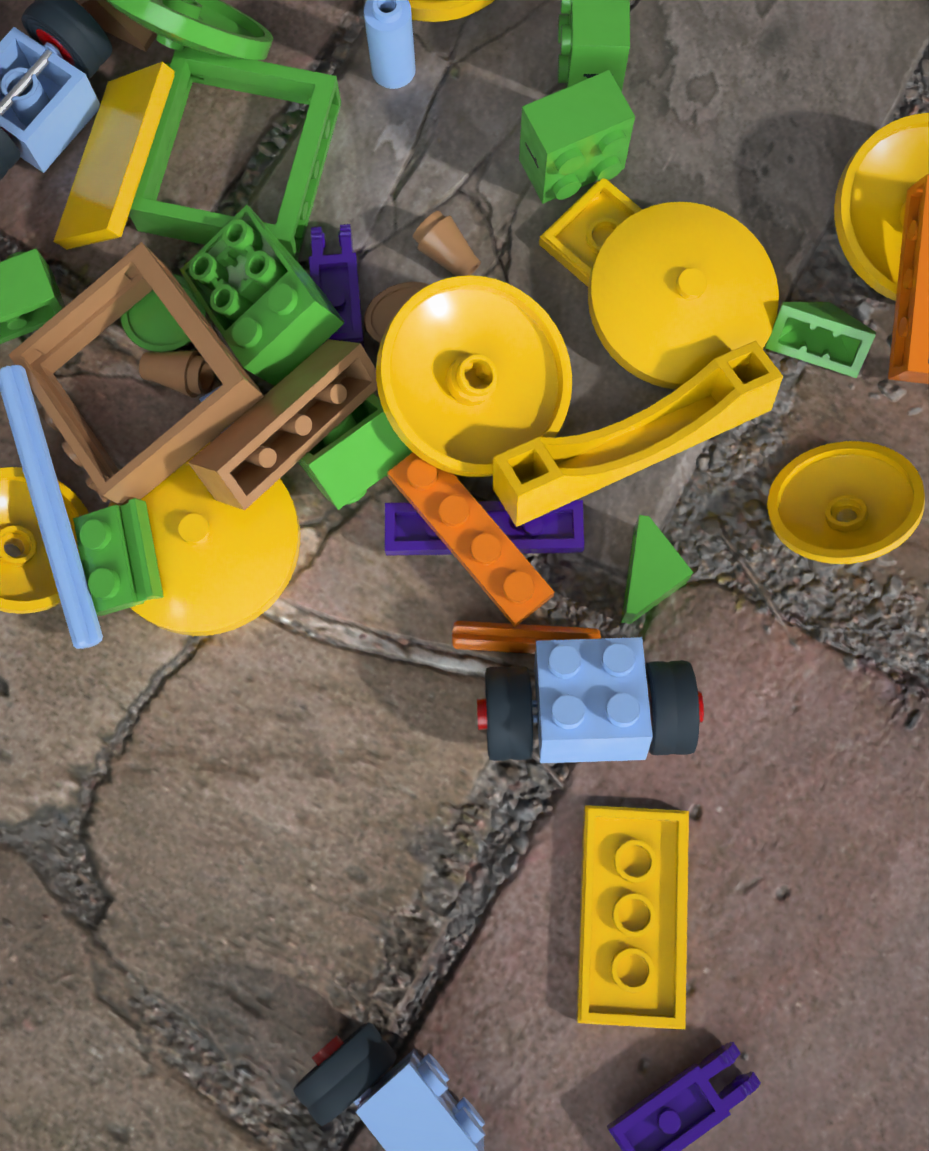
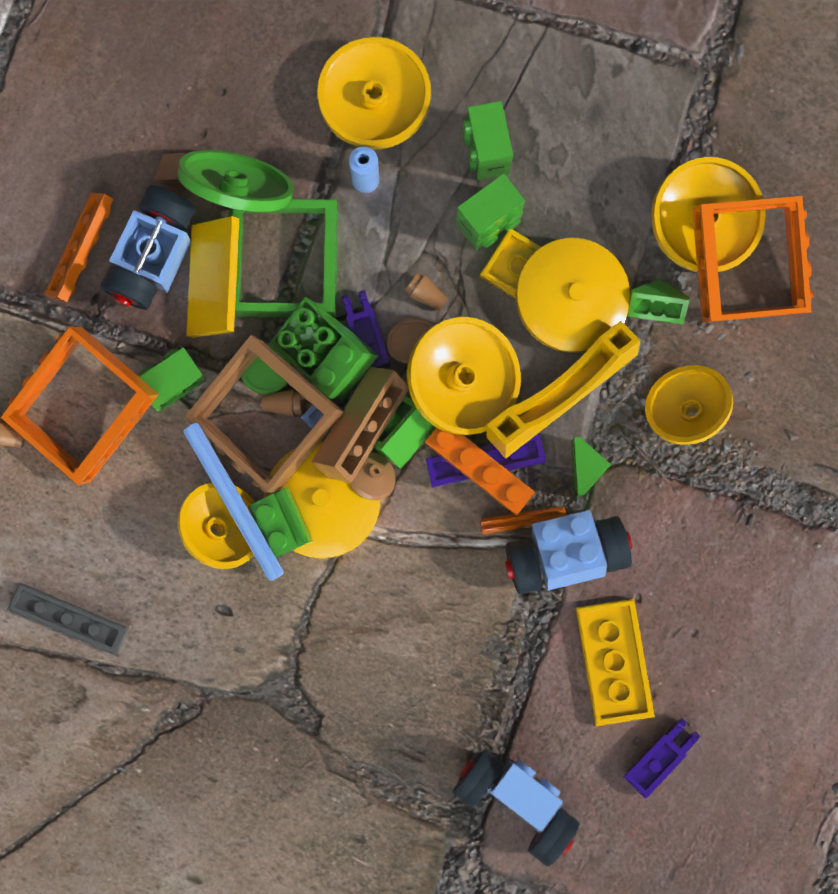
camera: 15 degrees left, 5 degrees up
(292, 515) = (375, 478): none -> medium nougat piece

